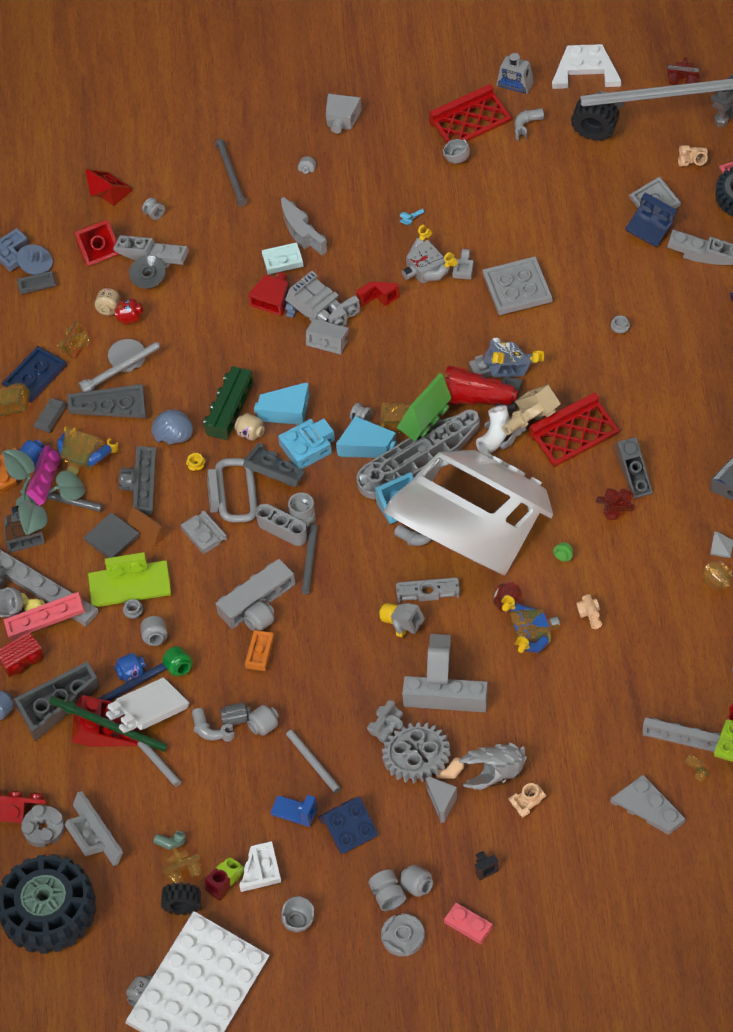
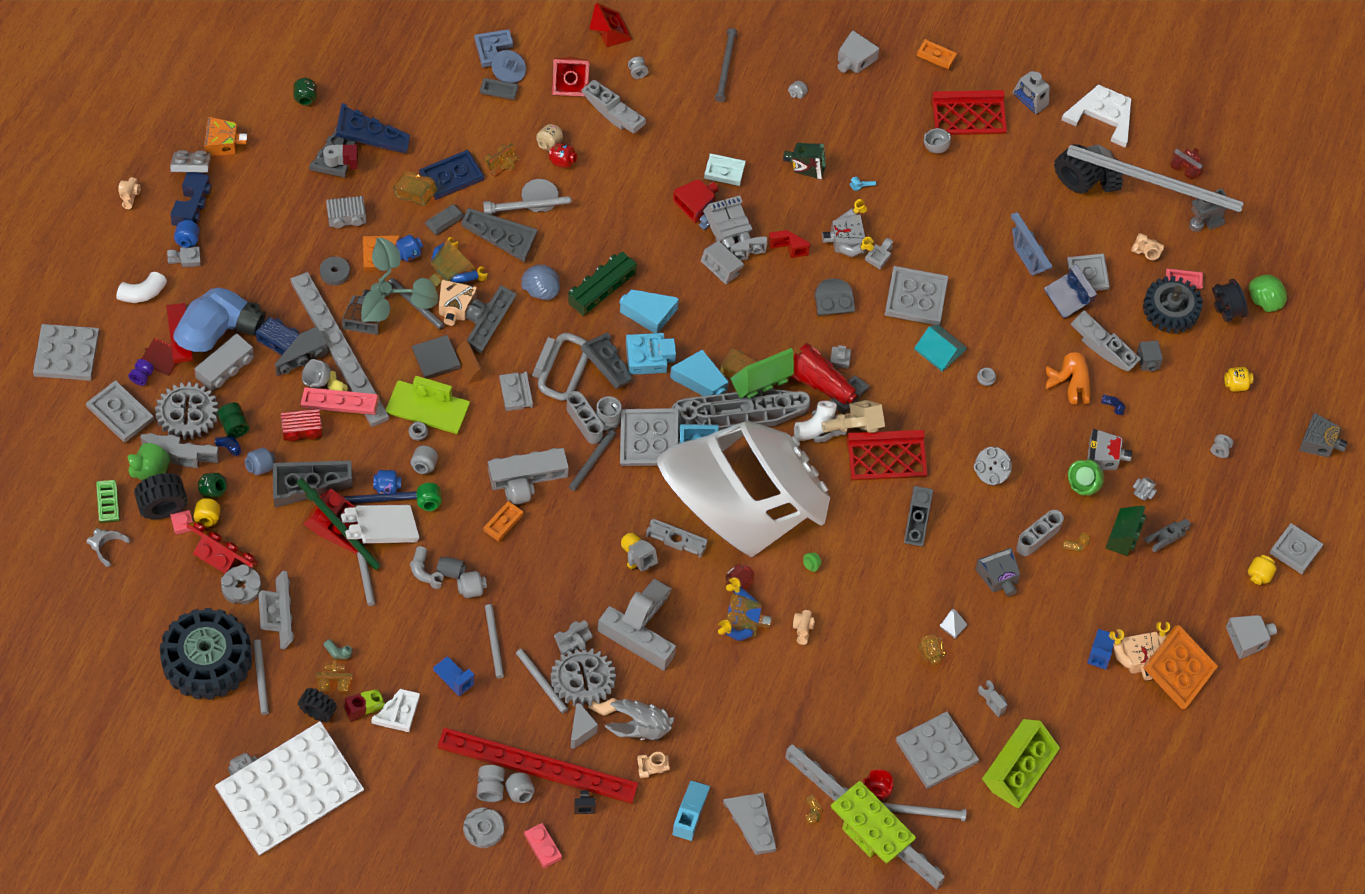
camera: 15 degrees right, 5 degrees up
(43, 475) = (405, 273): dark pink plate -> none
(102, 479) = (455, 301): none -> light nougat torso
(110, 901) = (261, 677): none -> light grey bar
(144, 266) = (598, 119): dark grey dish -> none
(195, 458) = (544, 319): yellow plate -> none
(249, 427) = (607, 314): tan head -> none
(297, 914) = (405, 766): light grey hair -> none
(301, 231) = (756, 148): light grey slope -> none
(349, 824) = (491, 711): dark blue bracket -> none
(352, 216) = (807, 159): none -> clear green torso
(352, 513) = (647, 435): none -> light grey plate
(361, 412) = (710, 348): light grey wheel -> none
(378, 775) = (542, 681): none -> light grey bar
(412, 82) = (936, 54): none -> orange plate
(420, 852) = (538, 765): none -> red plate
(445, 320) = (834, 297): none -> dark grey slope
(508, 360) = (867, 361): sand blue torso -> none
(525, 117) = (1017, 136): light grey piece -> none
(563, 320) = (939, 347): none -> teal slope
(587, 823) = (690, 810): none -> medium azure slope
(593, 201) = (1028, 248): none -> sand blue wing
(615, 502) = (880, 540): clear red hips -> none
(629, 114) = (1111, 180): none -> black tyre
(665, 392) = (986, 460): none -> light grey plate
(705, 293) = (1074, 364): none -> orange piece

